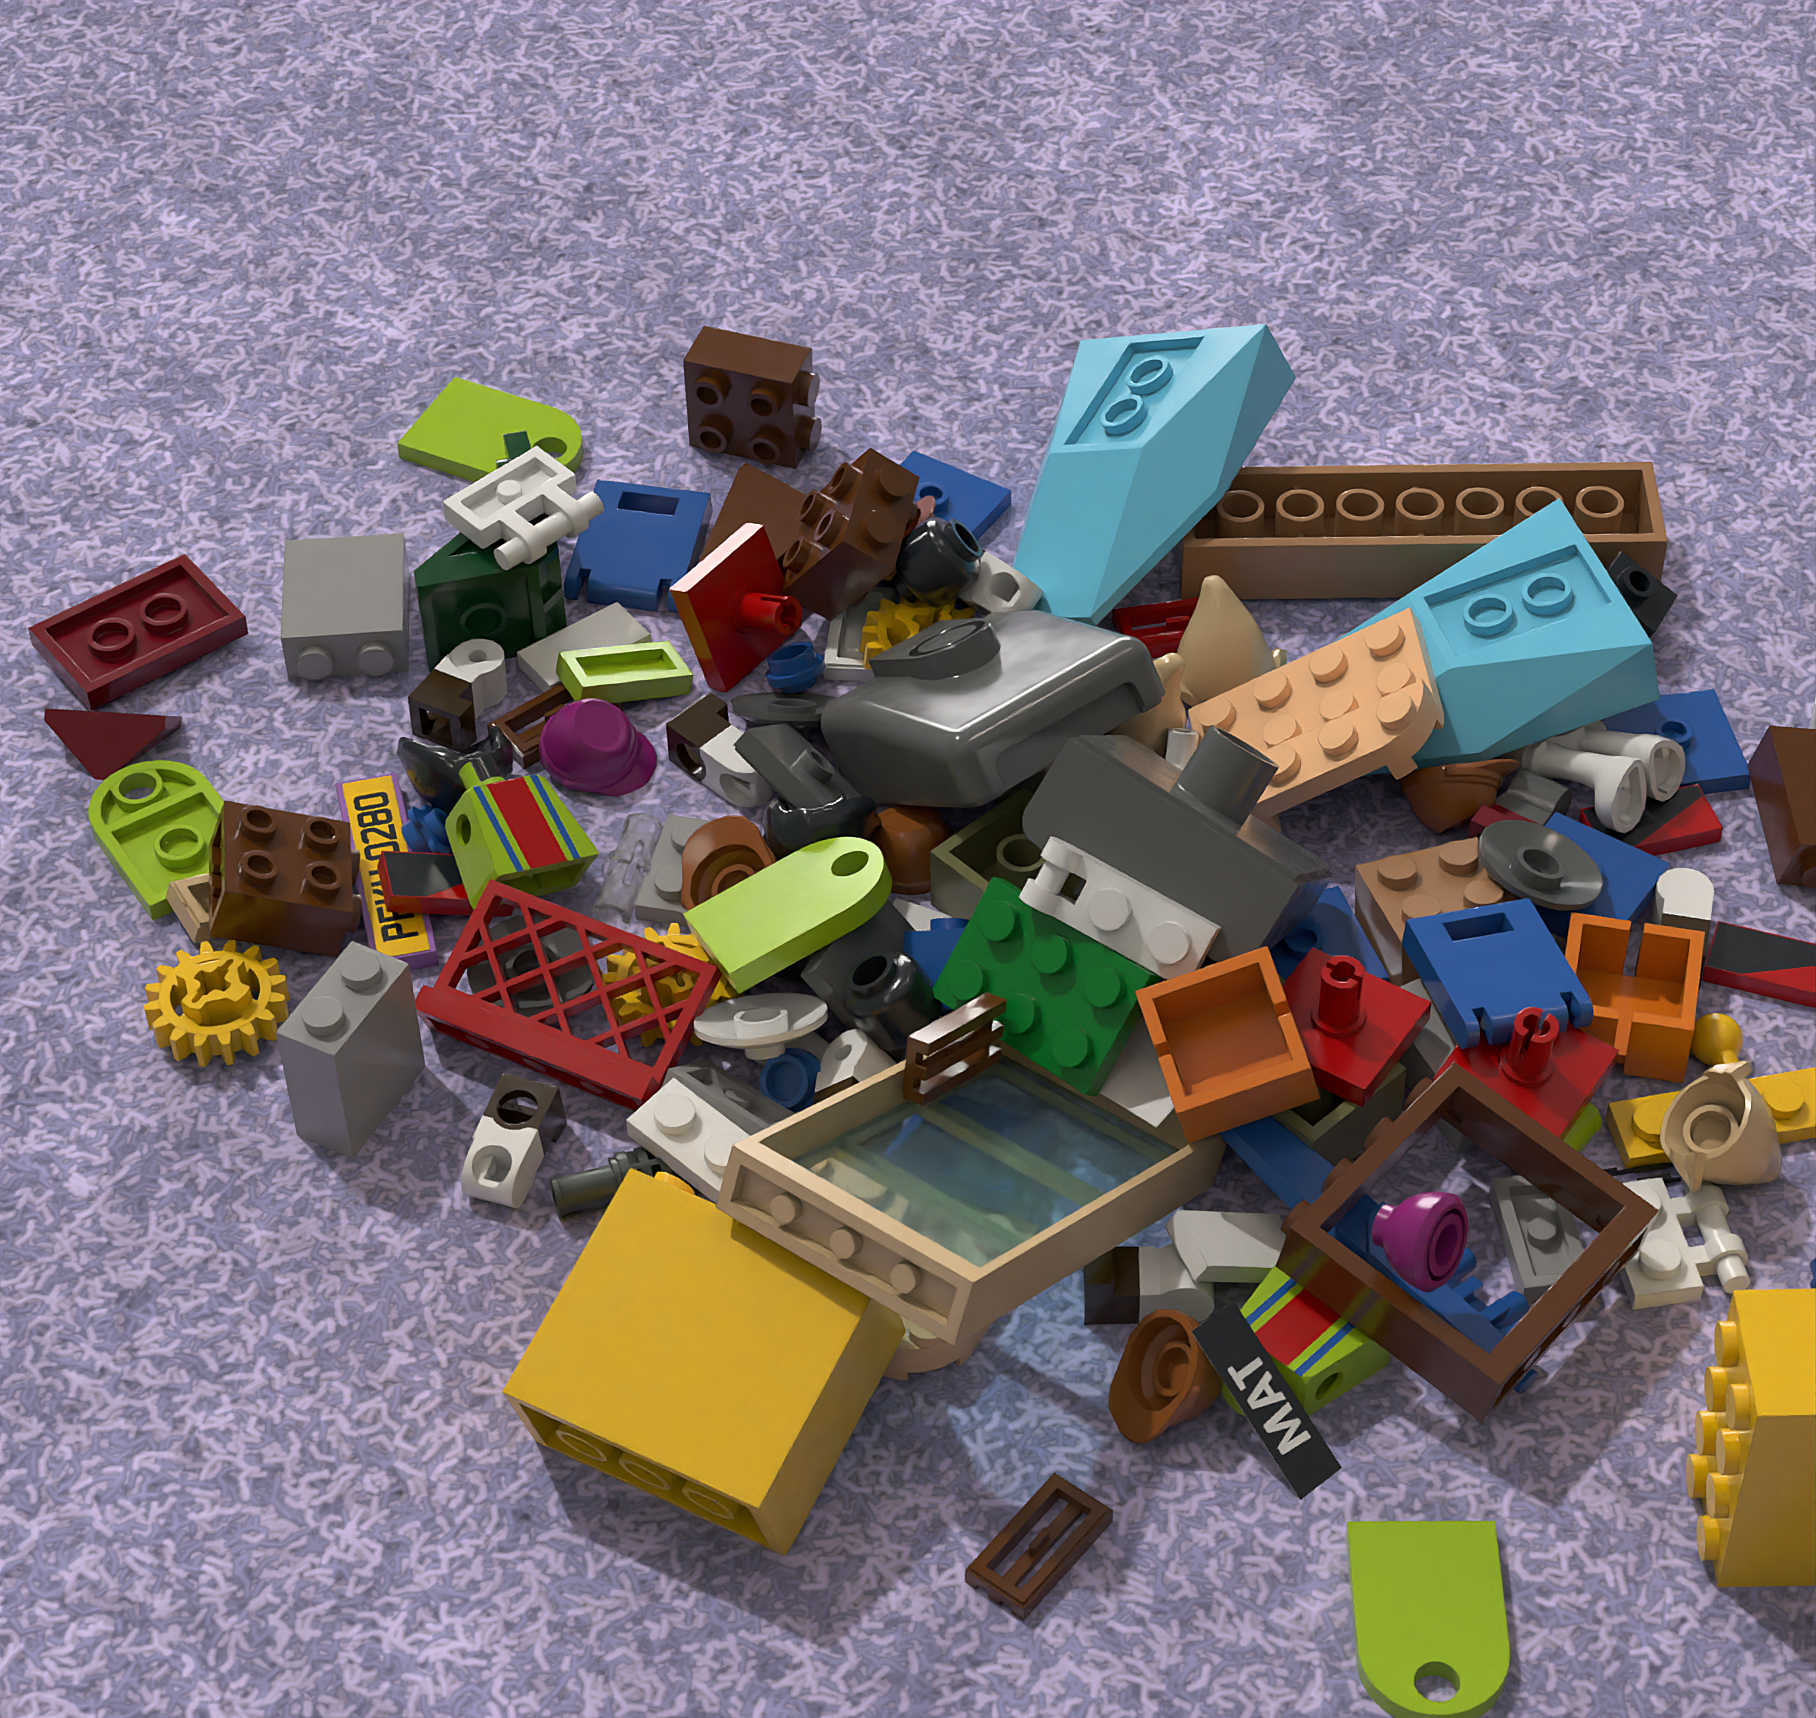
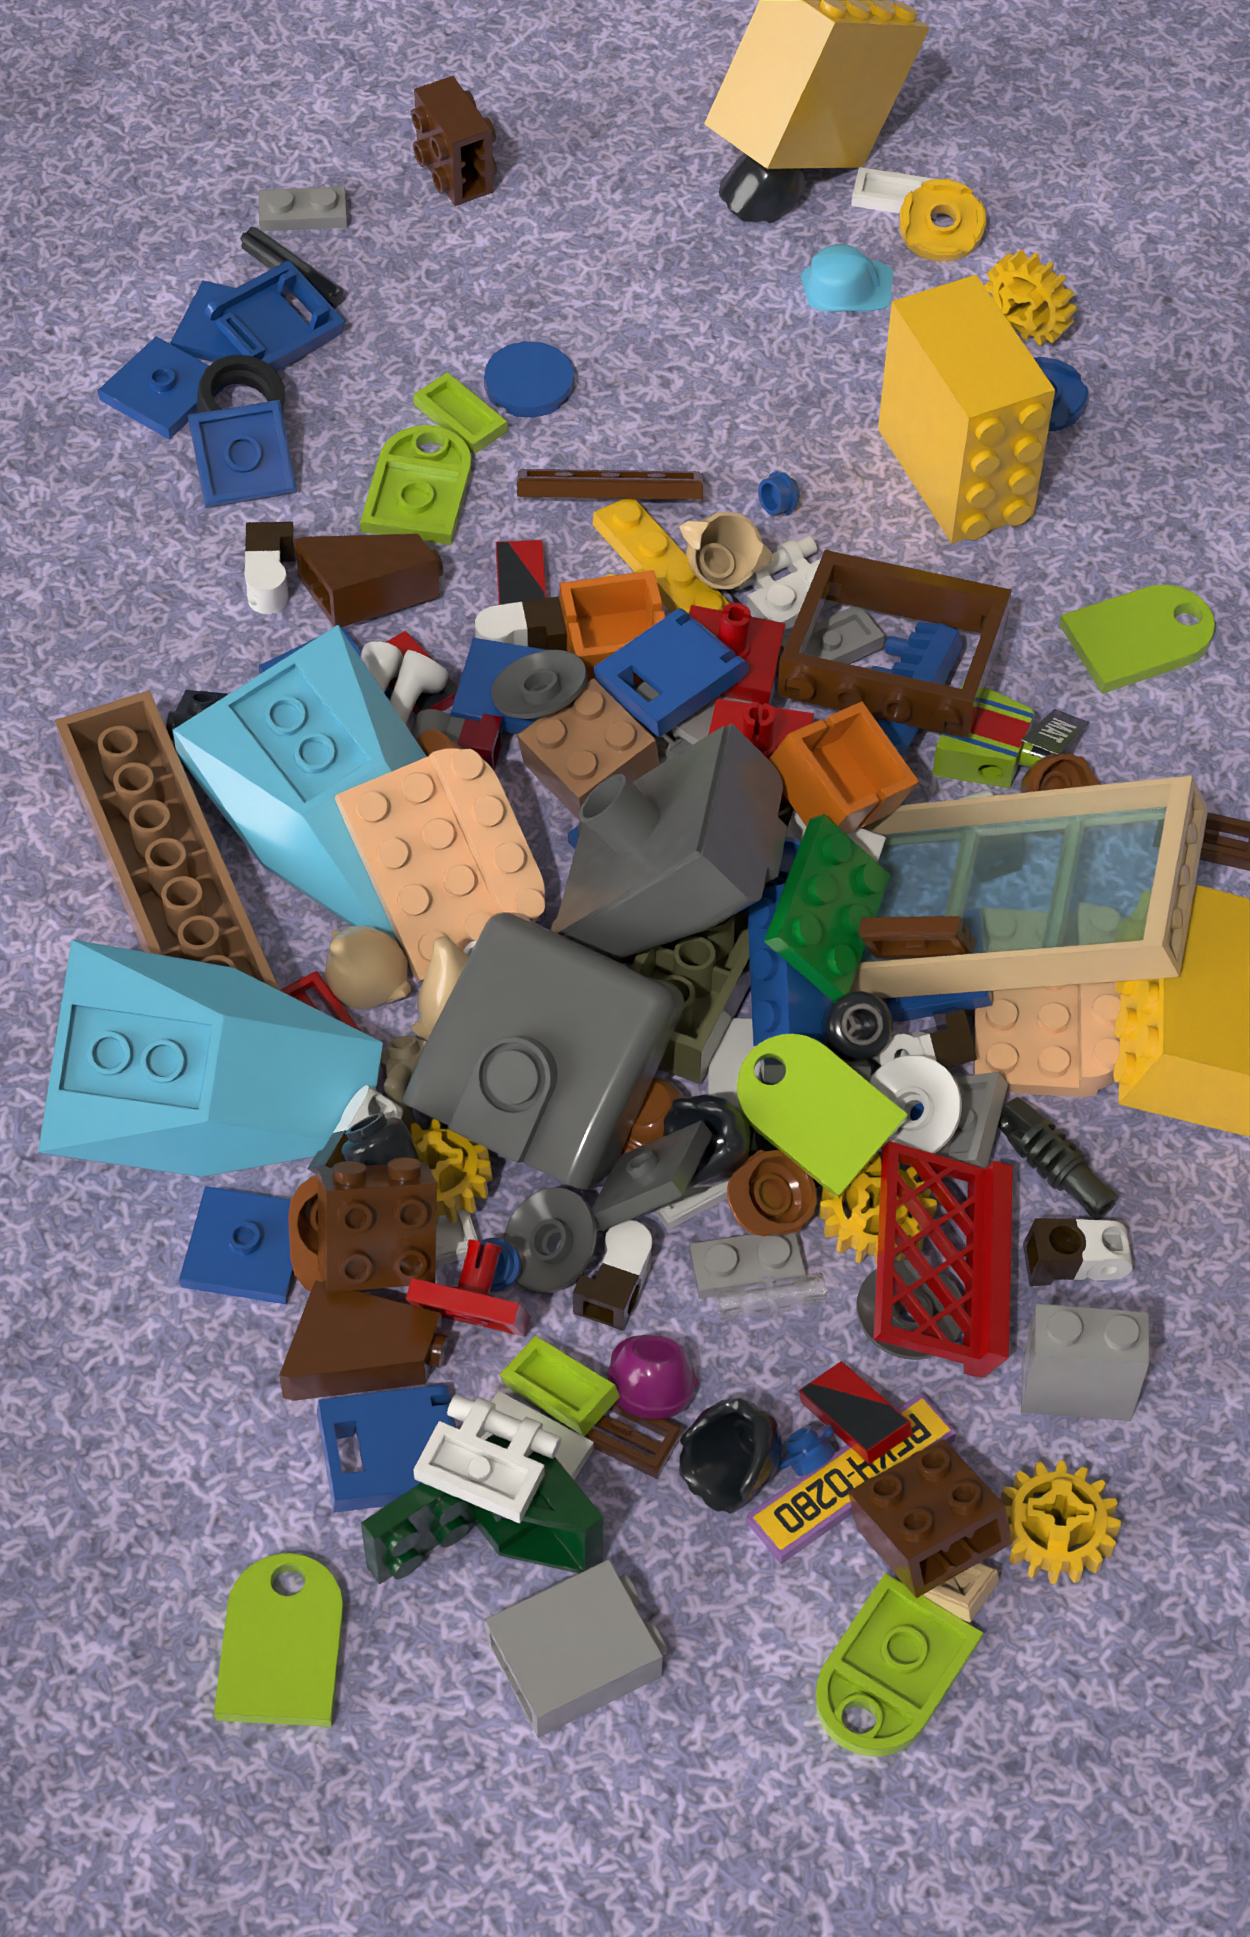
camera: 115 degrees left, 10 degrees up
(109, 739) = (801, 1778): dark red slope -> none
(138, 631) = (675, 1821): dark red plate -> none
(457, 694) = (640, 1506): leg -> none
(515, 834) = (811, 1358): lime torso -> none
(686, 1136) = (1038, 1097): white plate -> none
(751, 397) = (188, 1405): reddish brown brick -> none
(1120, 912) = (786, 838): white plate -> none
(1227, 1244) = (947, 782): white tile -> none
(1423, 1238) = (949, 627): magenta brick -> none

